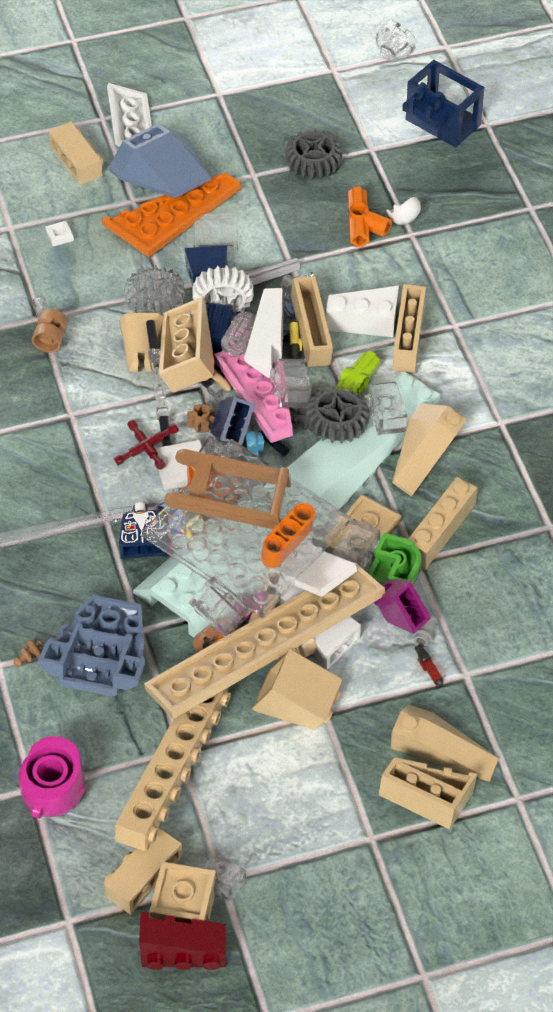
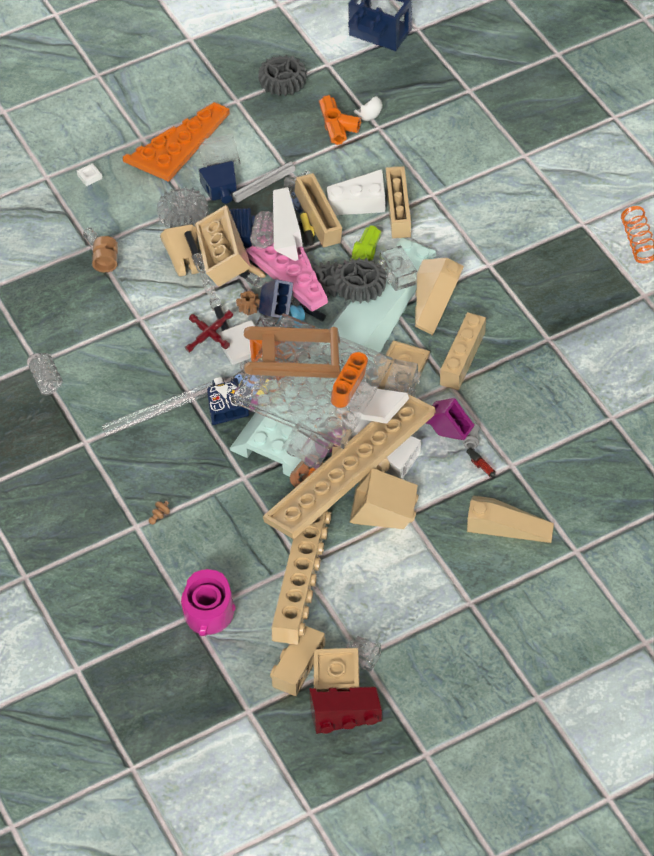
camera: 10 degrees left, 0 degrees up
(76, 153) = (85, 106): tan brick -> none
(98, 648) = (216, 497): sand blue wedge -> none
(128, 112) = (124, 72): white slope -> none
(160, 162) = (158, 102): sand blue wedge -> none
(224, 287) = (240, 194): white gear -> none
(290, 383) = (316, 261): clear brick -> none
(395, 560) = (435, 384): bright green brick -> none
(427, 791) = (505, 557): tan wedge -> none

